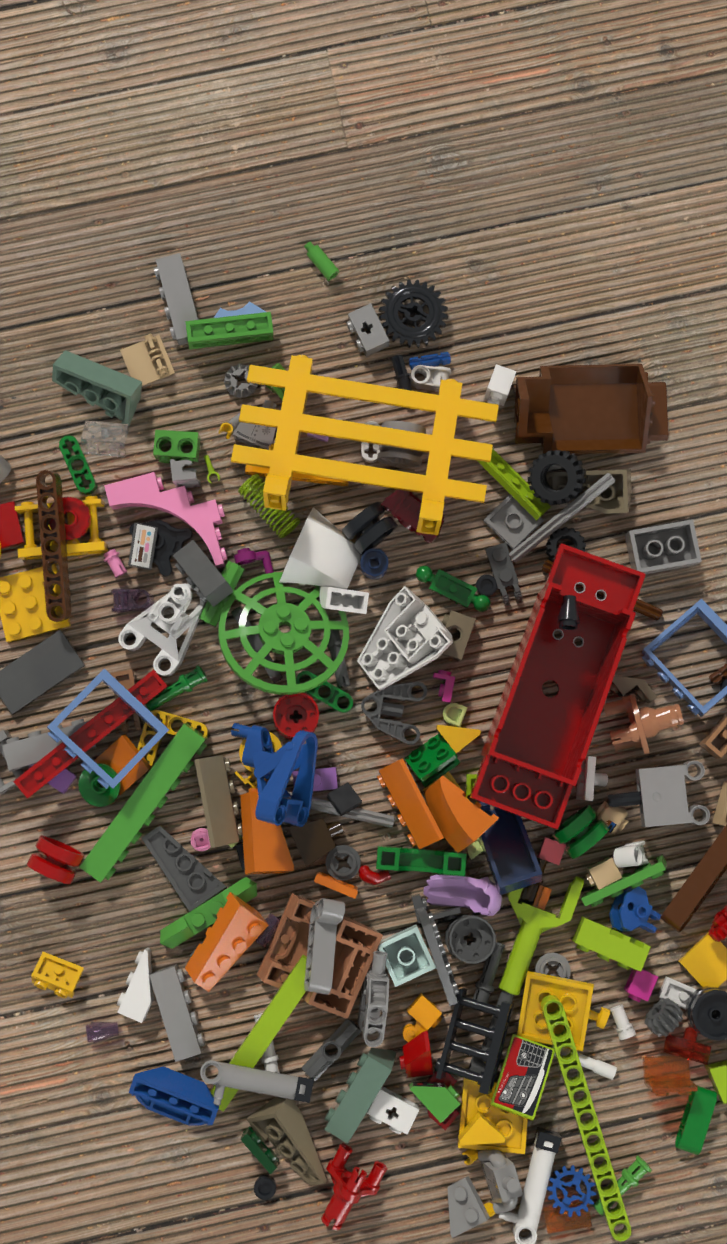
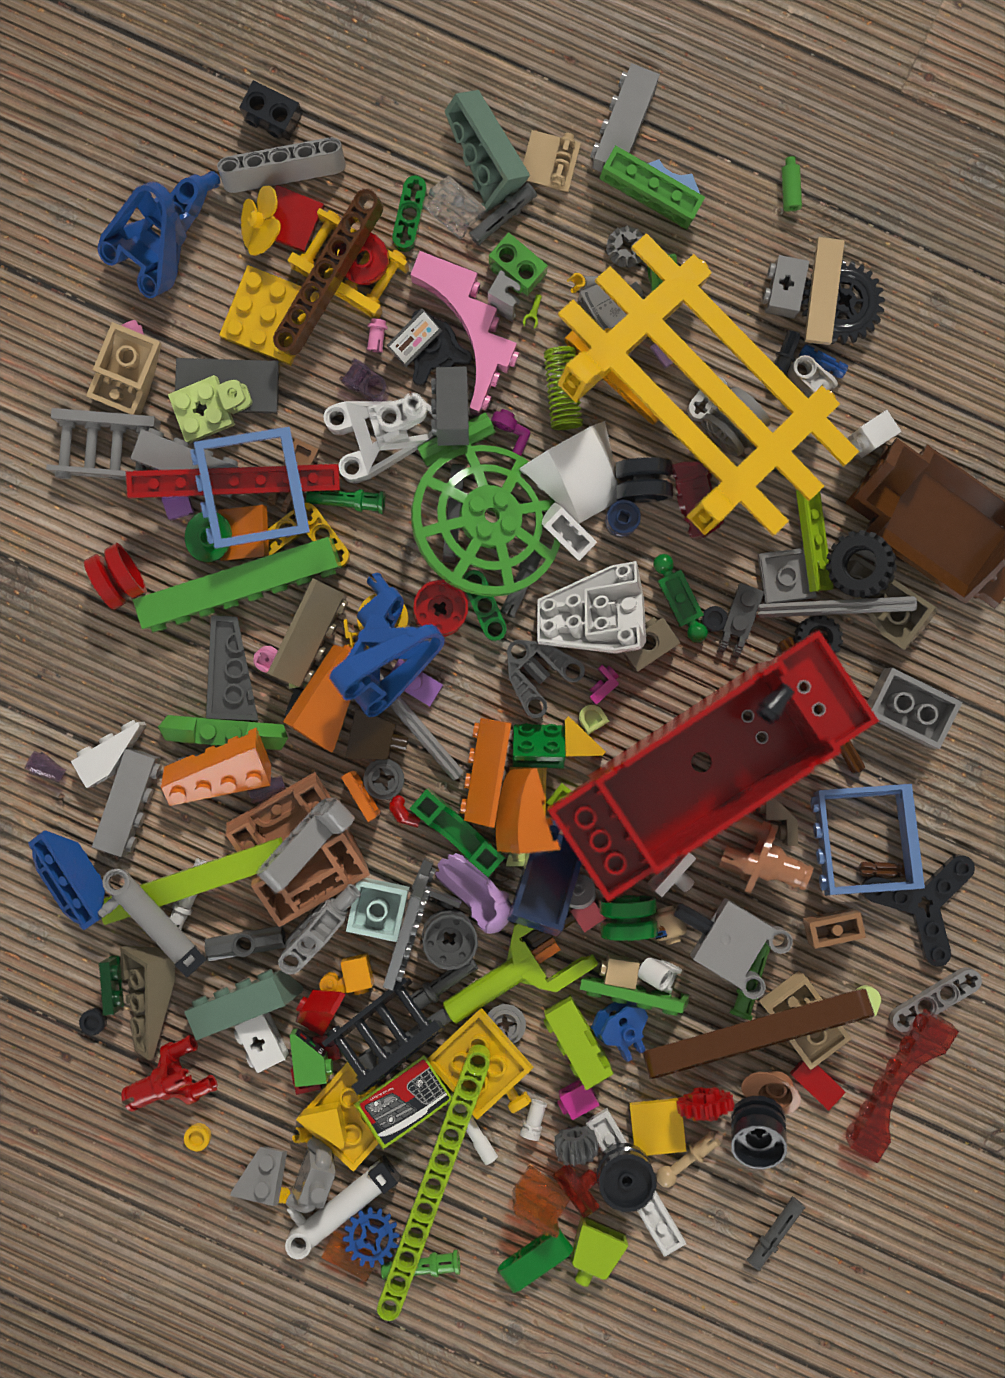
camera: 40 degrees right, 5 degrees up
(42, 688) = (220, 403): none -> yellowish green plate
(56, 975) = (40, 684): yellow bracket -> none
(141, 420) = (501, 215): none -> dark grey pin
(344, 799) = (428, 721): black piece -> none
(395, 316) = (824, 291): none -> tan tile
(398, 1214) = (197, 1137): none -> yellow tile
(538, 838) = (584, 893): none -> light grey wheel
(703, 831) = (743, 1004): none -> bright green pin

